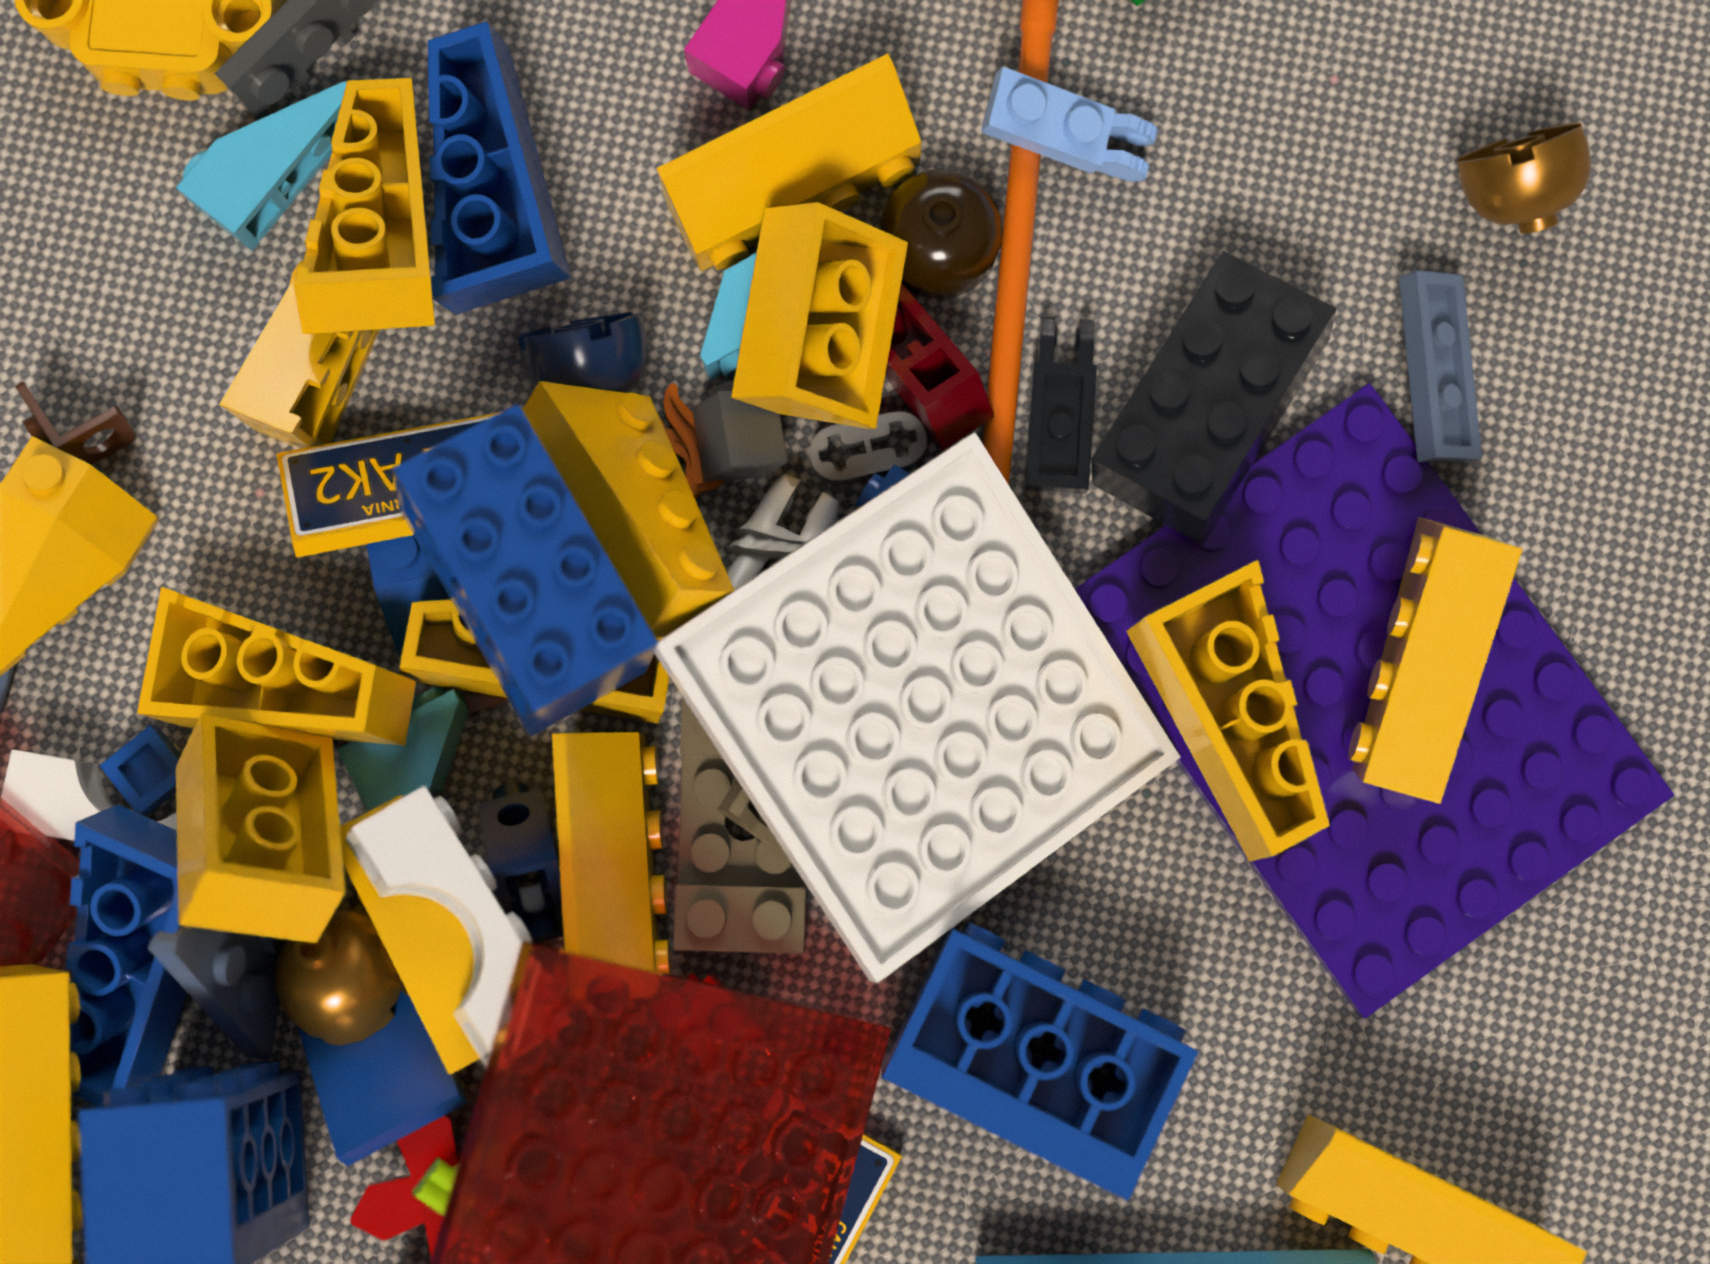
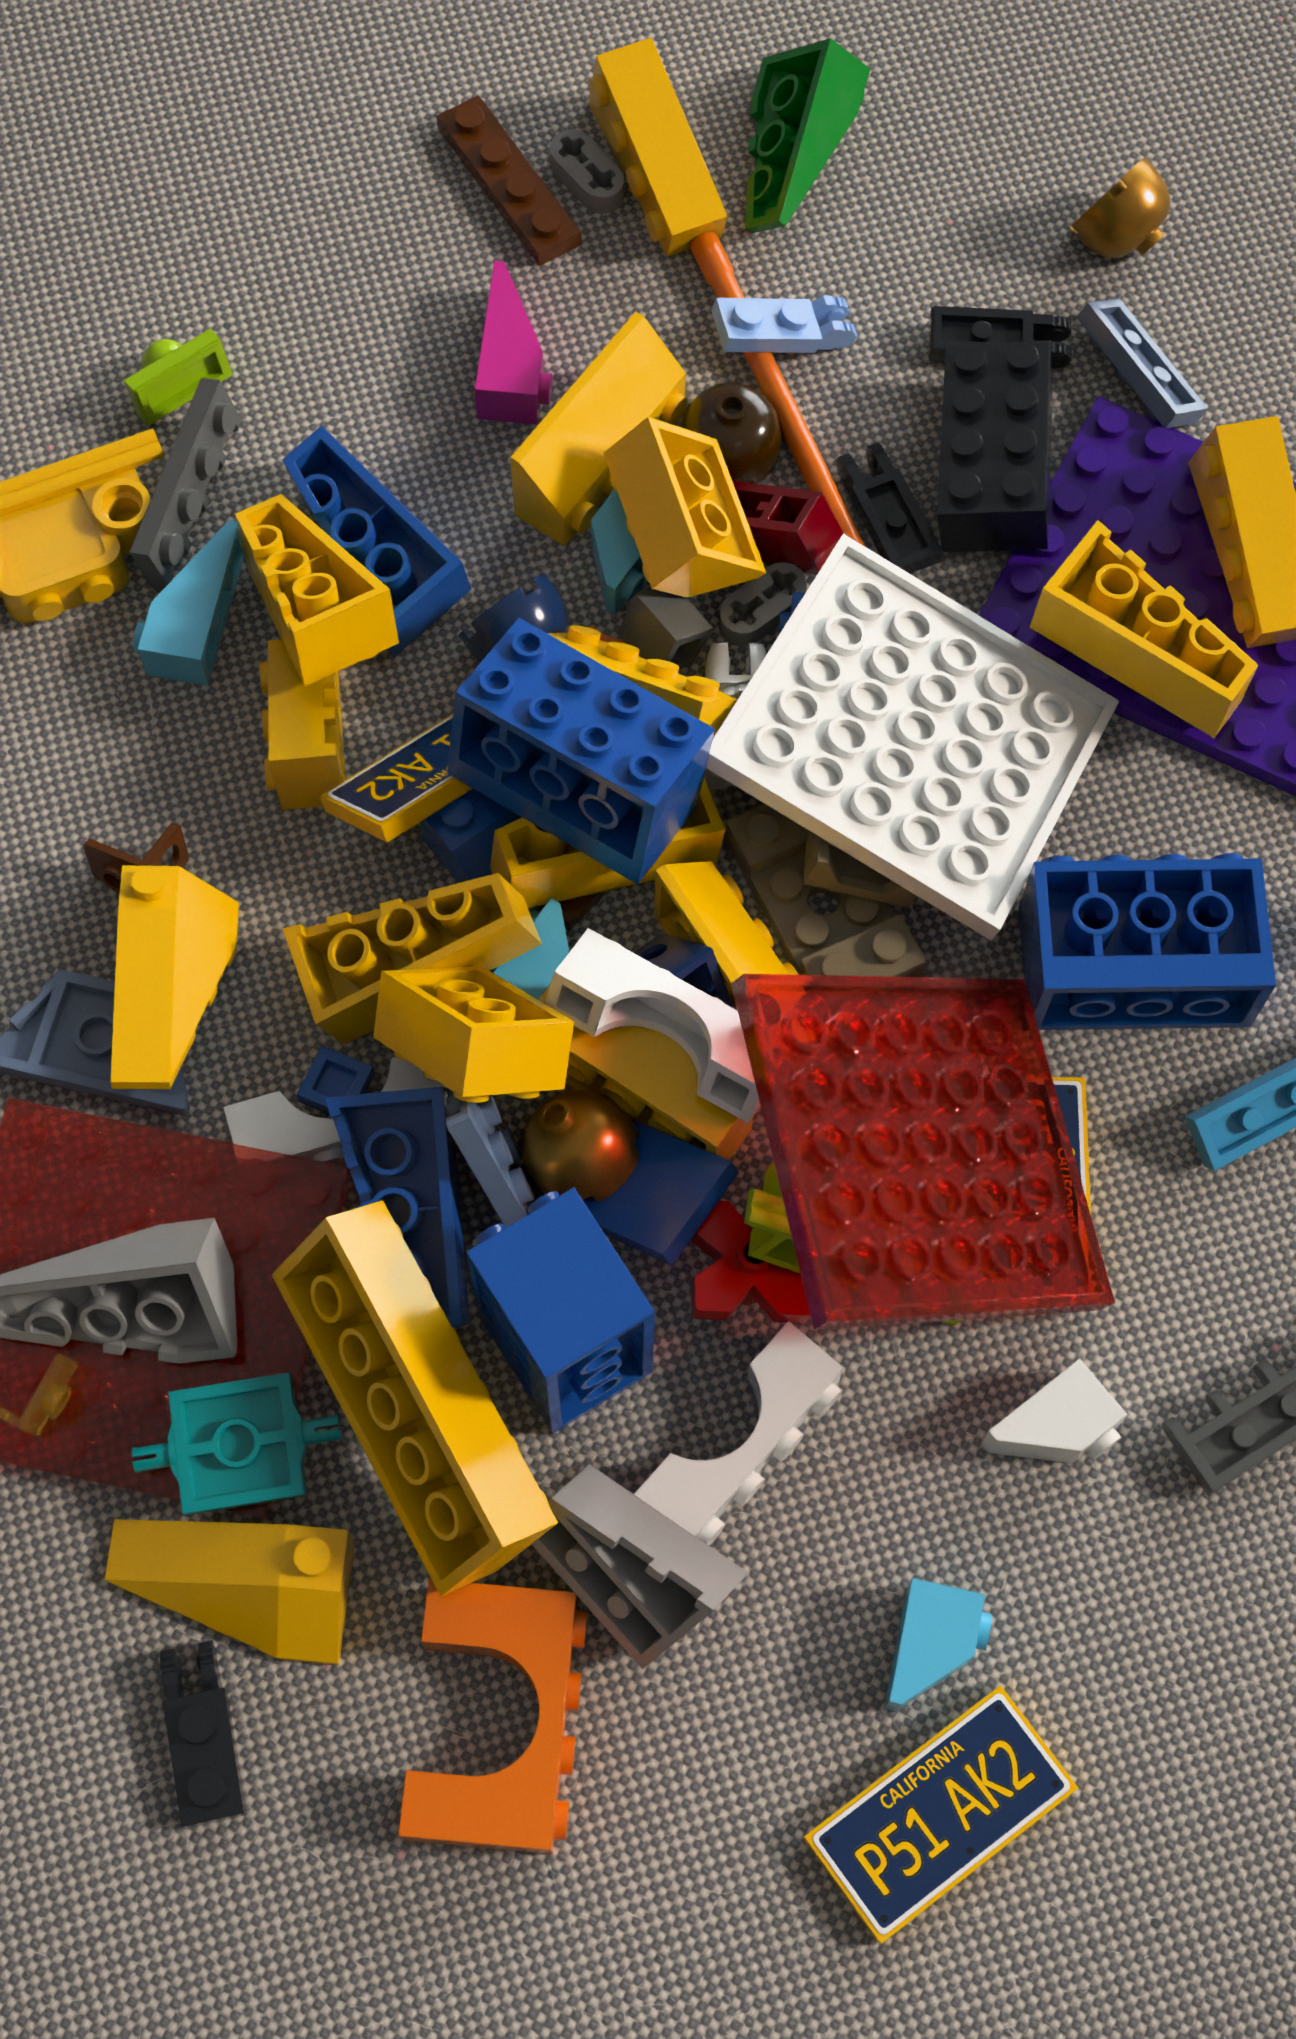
camera: 30 degrees left, 15 degrees down
(1298, 253) = (988, 325): none -> black hinge

